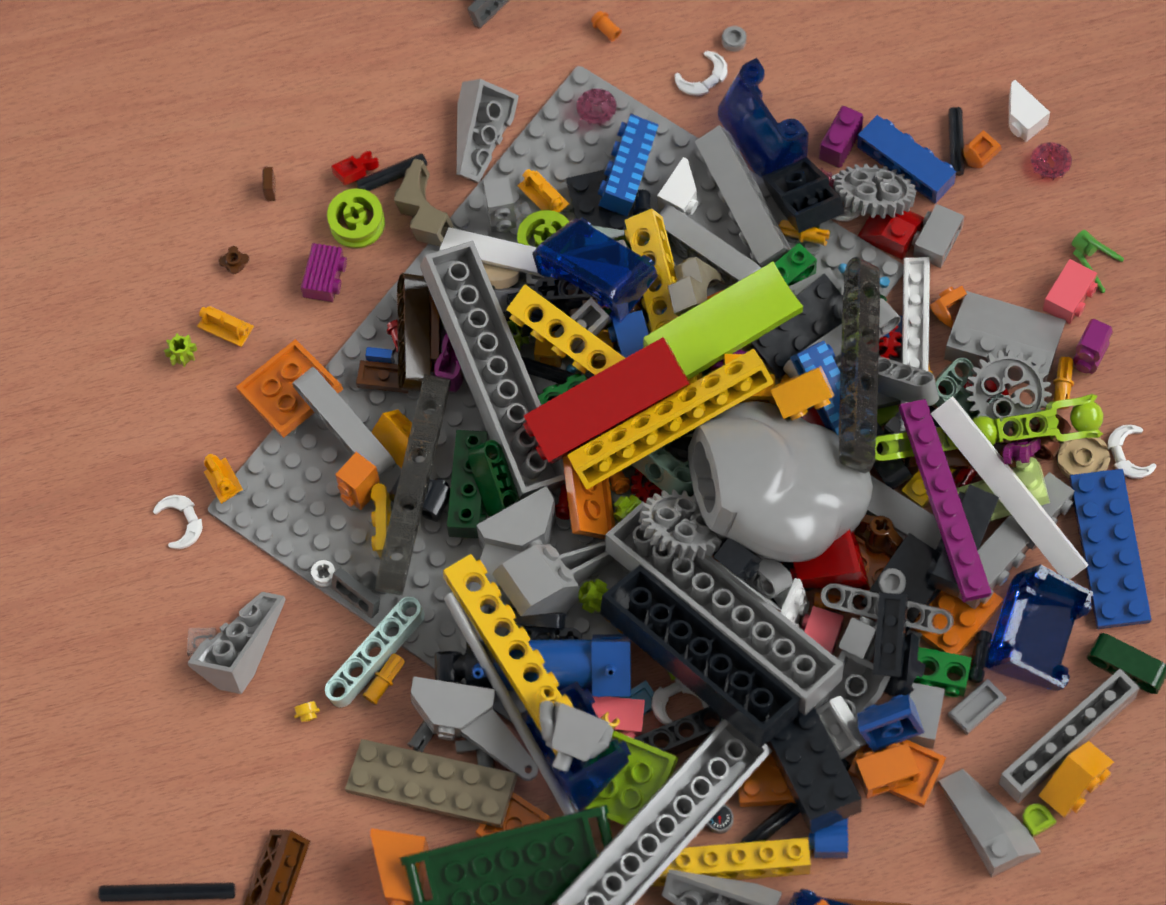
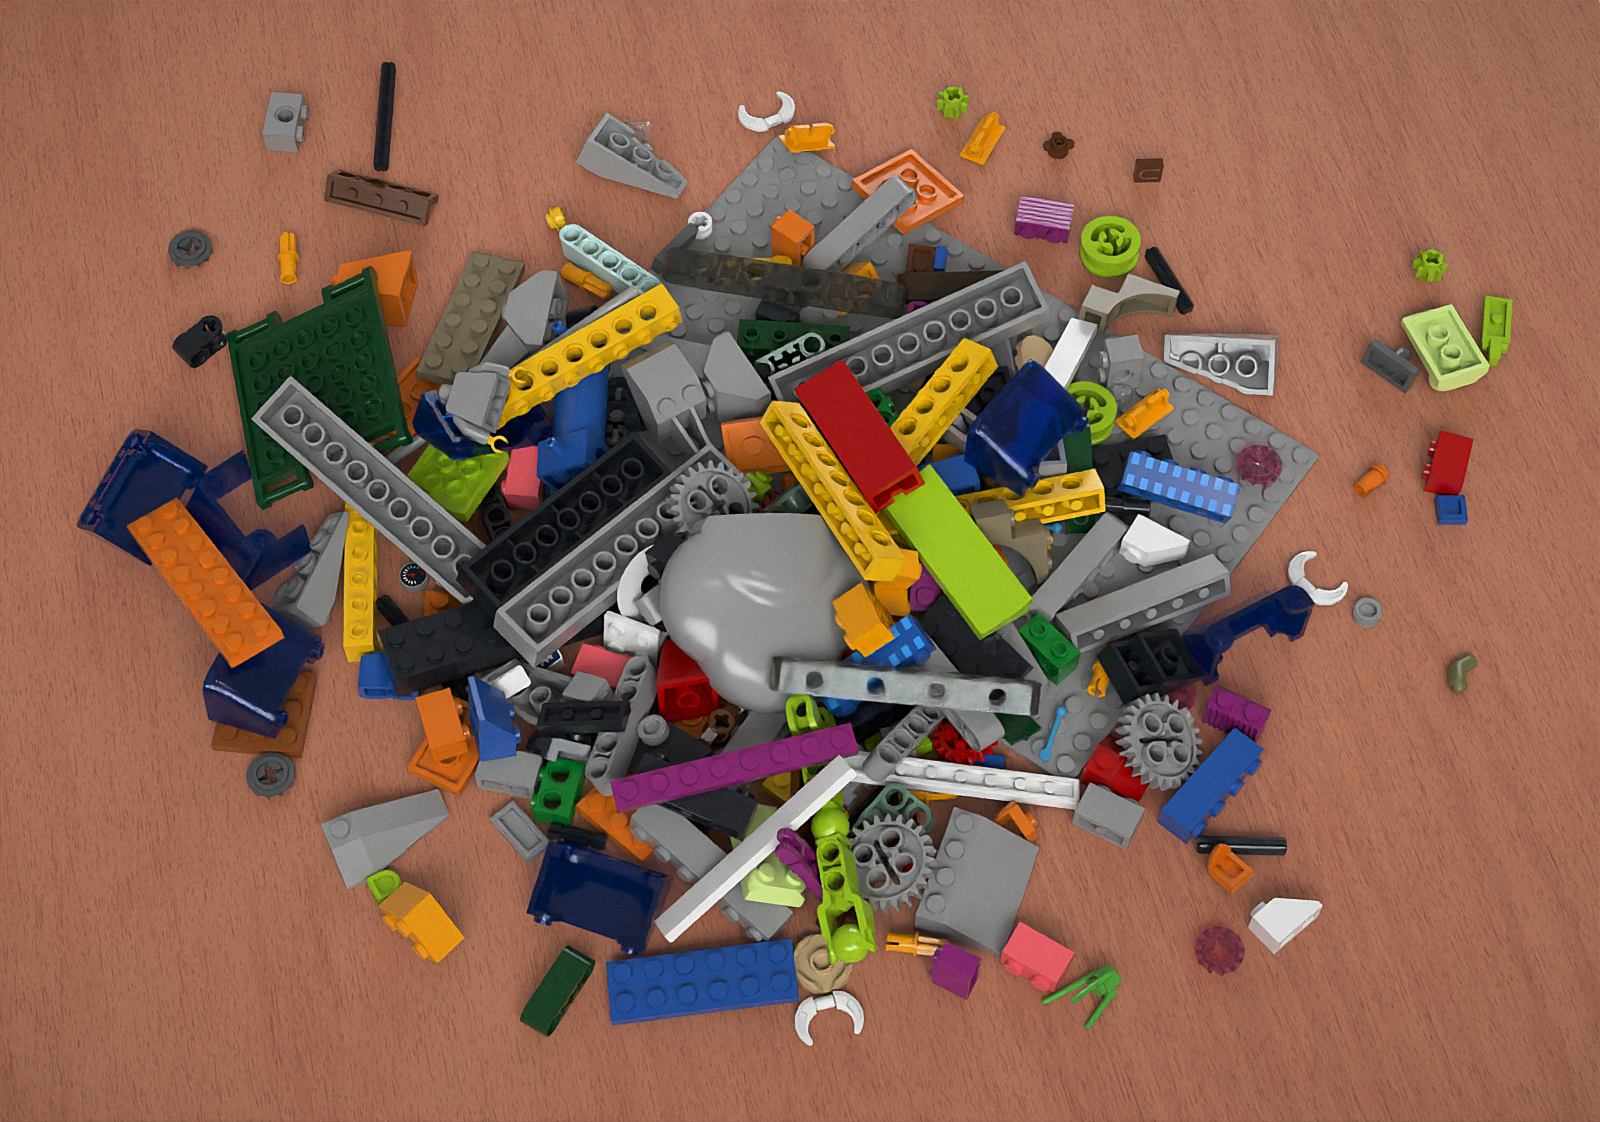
camera: 85 degrees right, 5 degrees down
(353, 169) = (1172, 243): red plate -> none
(591, 595) = (664, 452): lime gear -> none
(1068, 735) = (472, 917): light grey brick -> none

